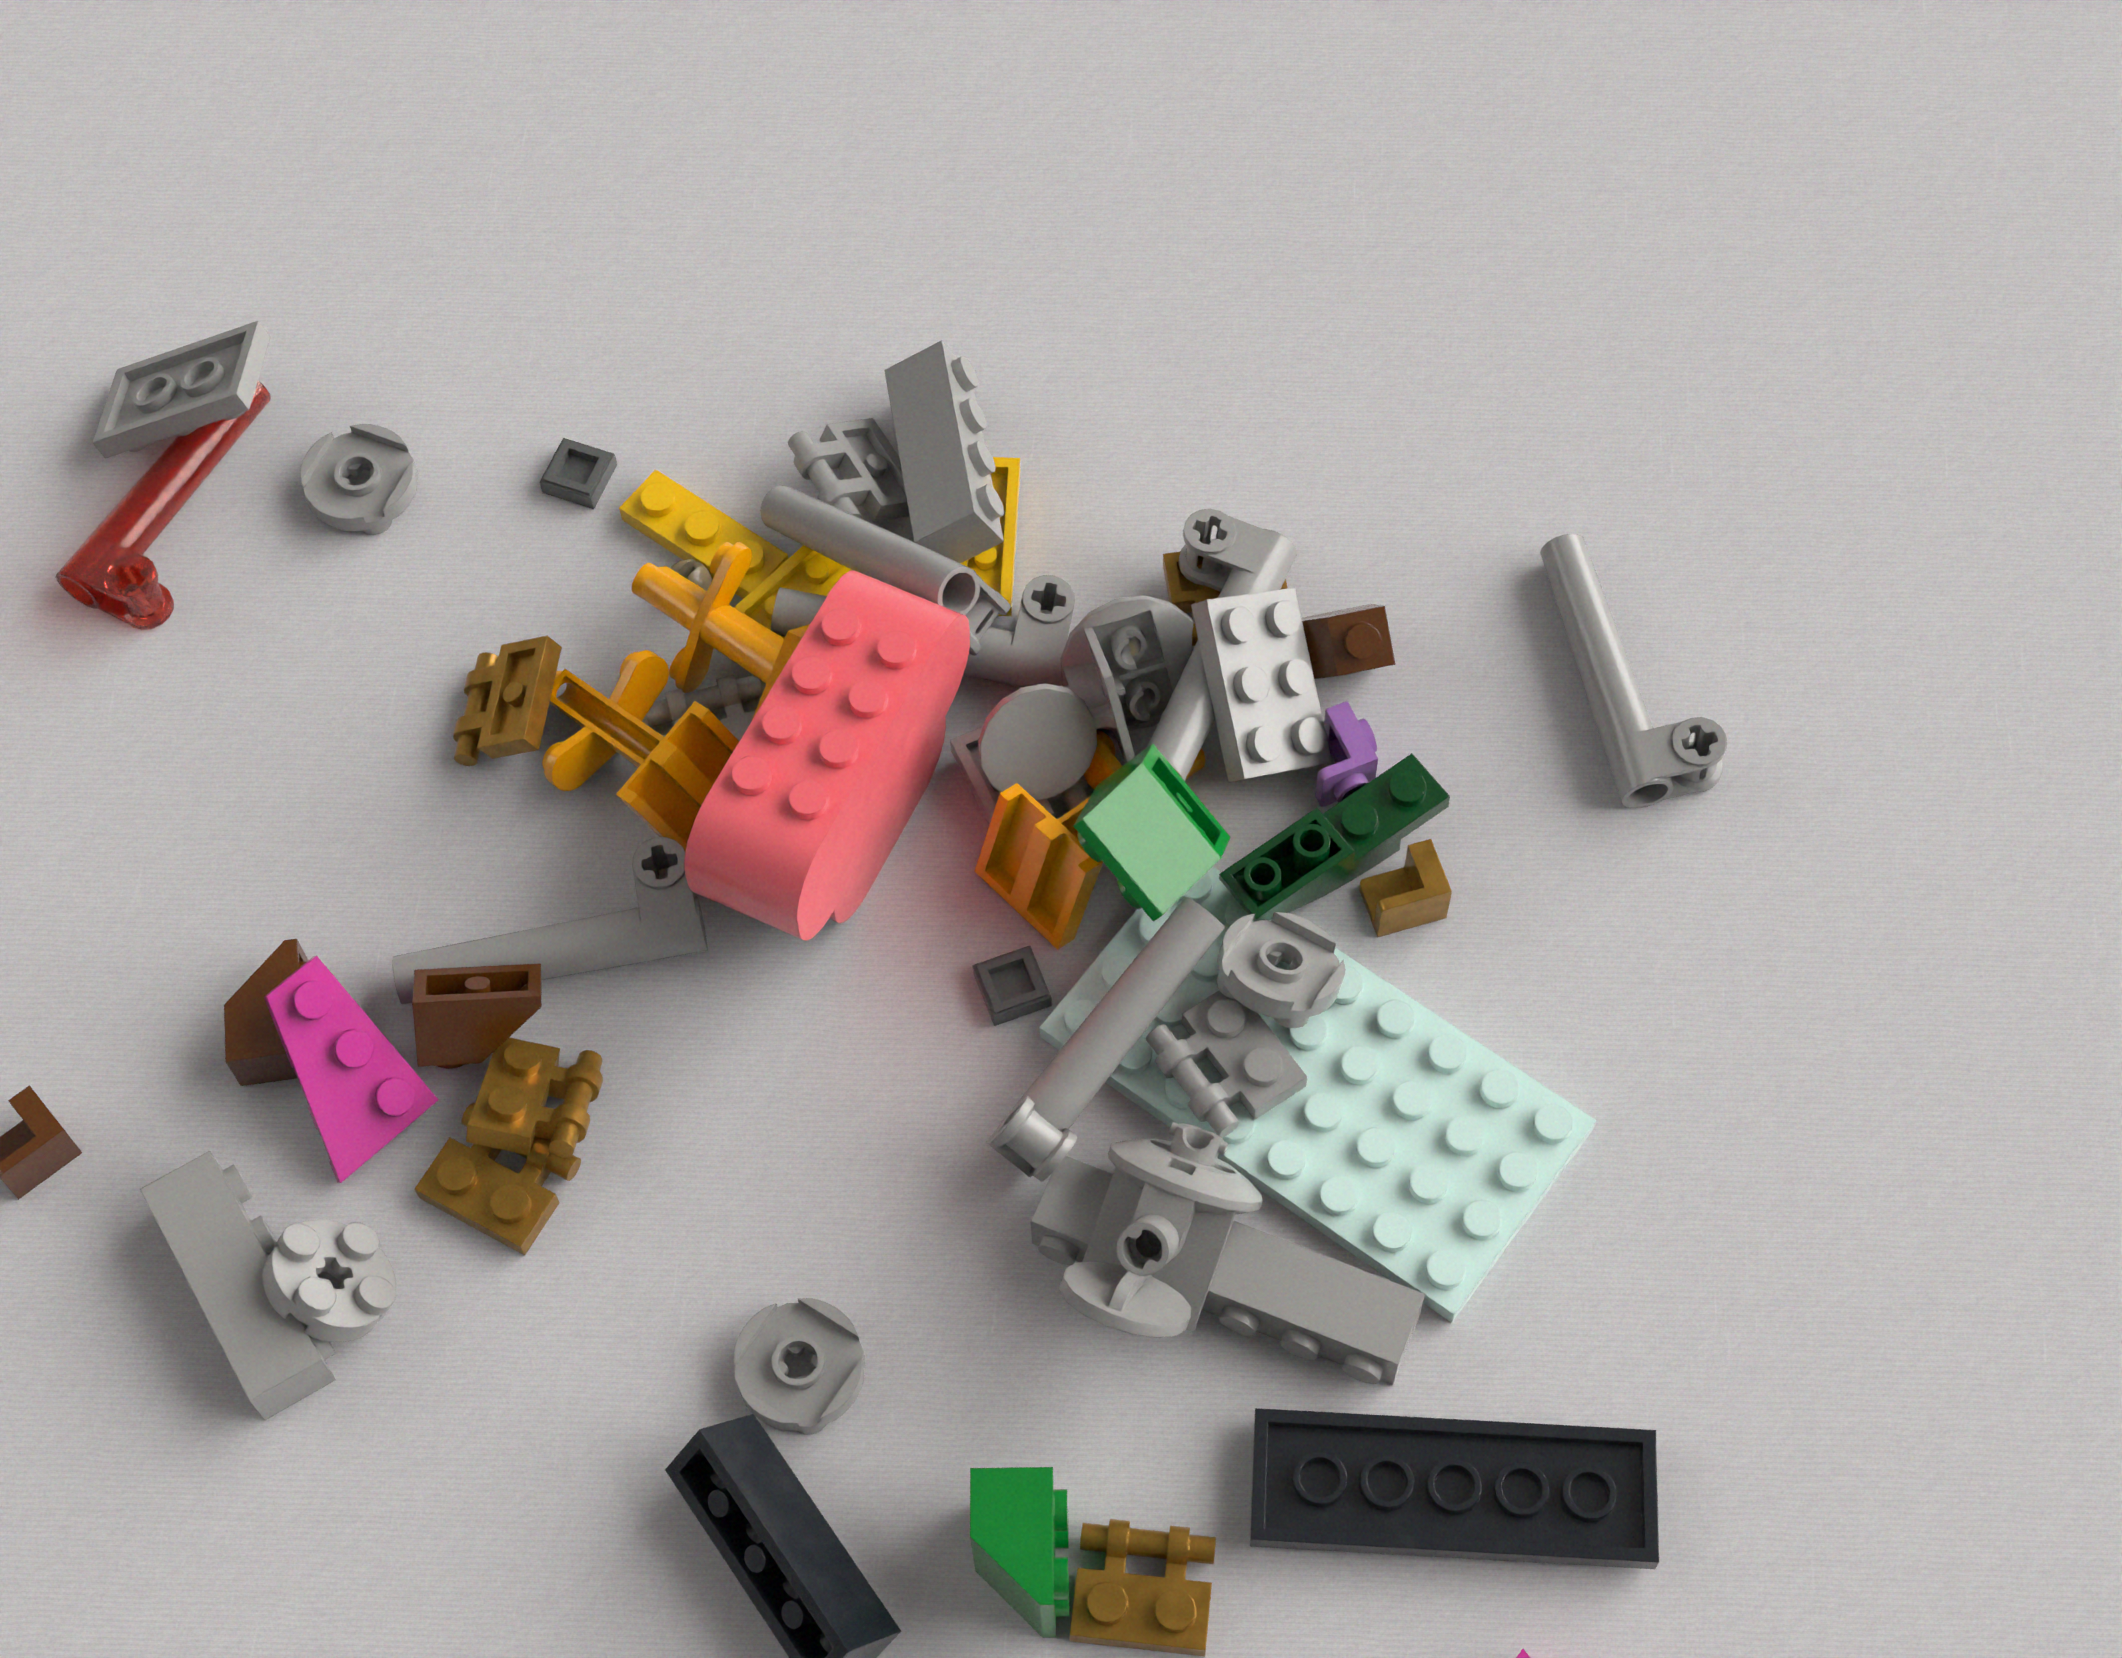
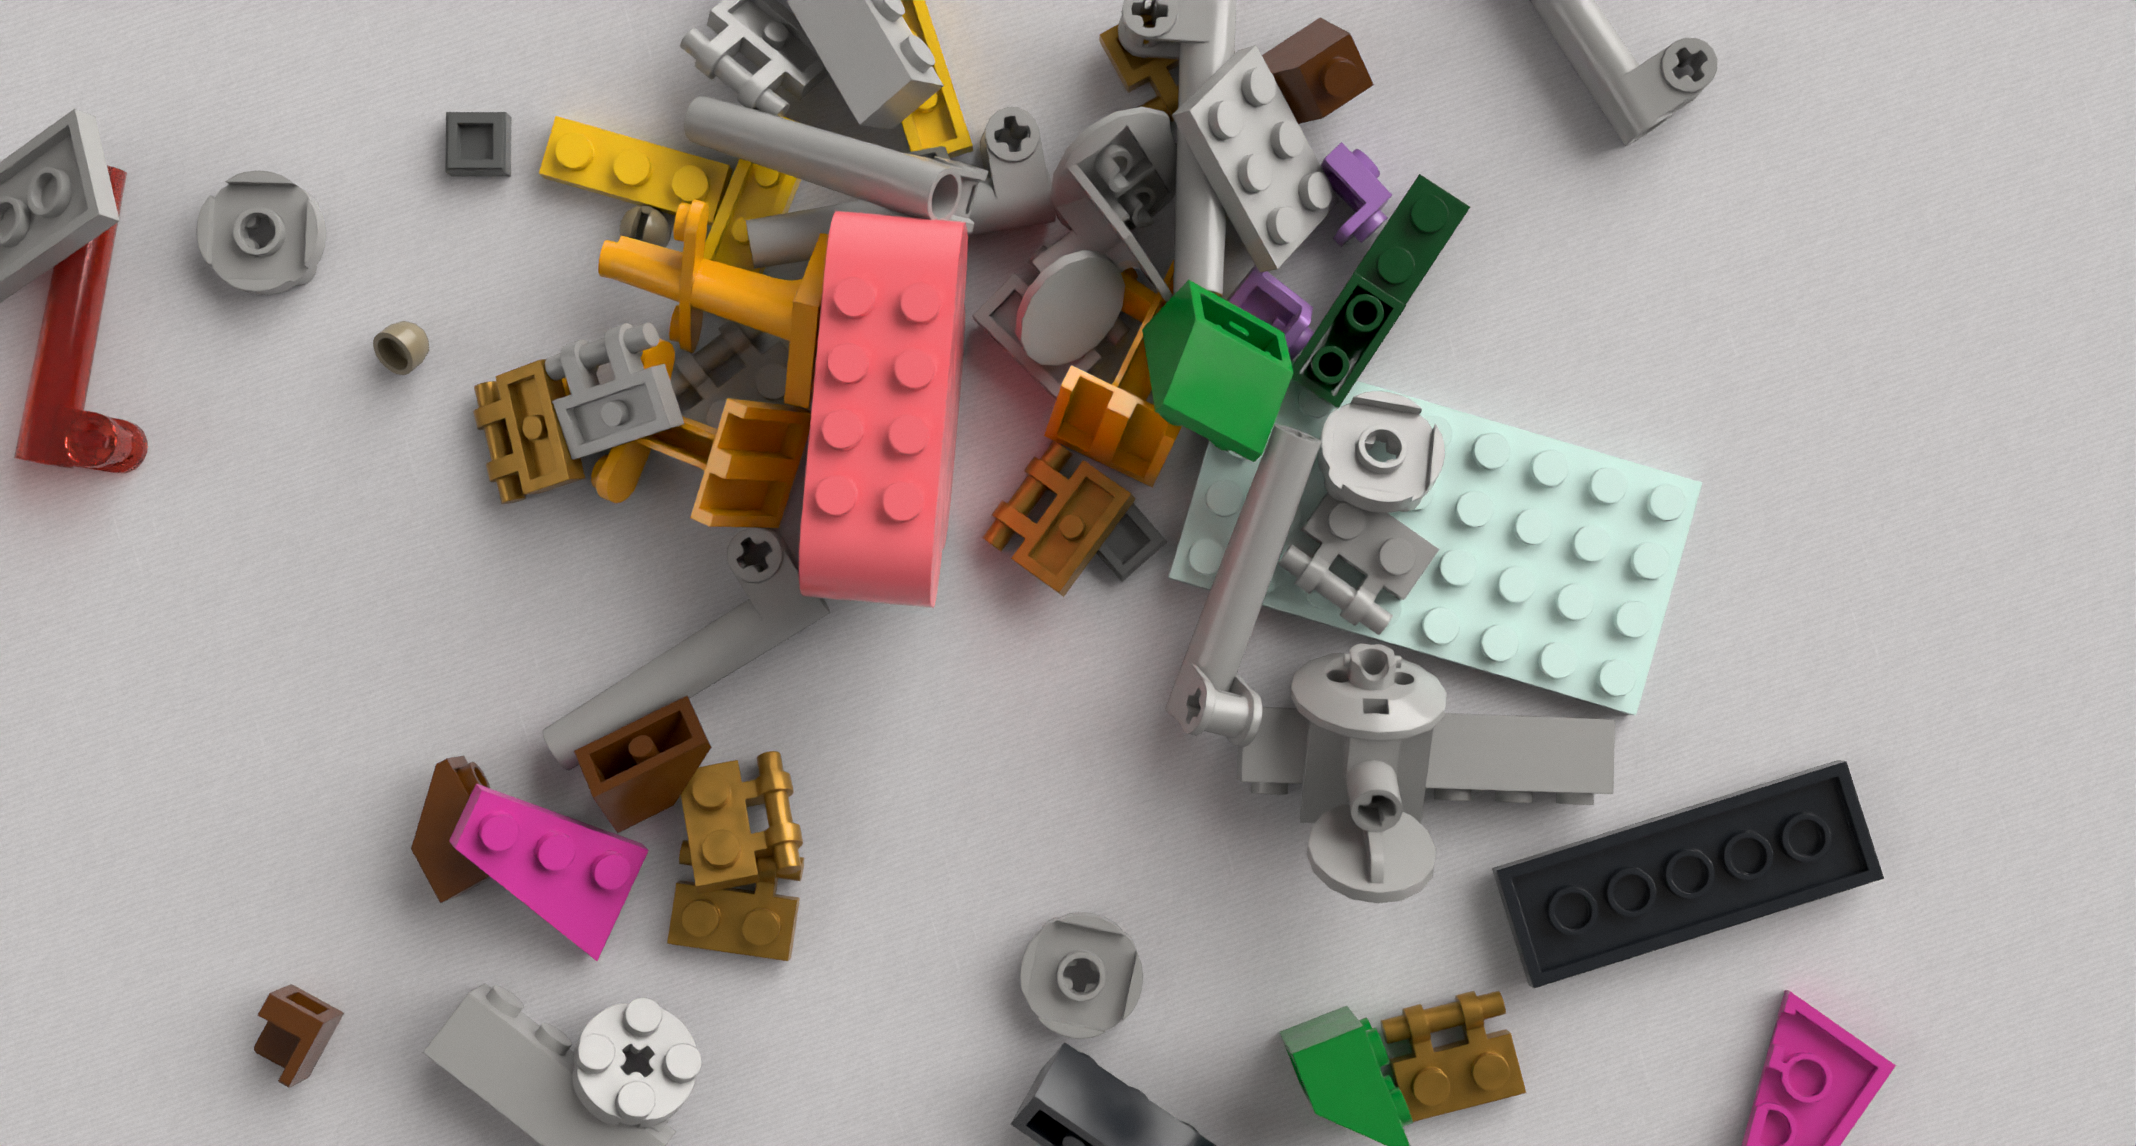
camera: 25 degrees left, 25 degrees up
(431, 602) = (401, 347): none -> dark tan hinge
(597, 693) = (620, 410): none -> light grey plate
(962, 948) = (1070, 528): none -> pearl gold plate
(1237, 820) = (1276, 305): none -> medium lavender bracket
(1408, 894) = (1455, 313): pearl gold panel -> none

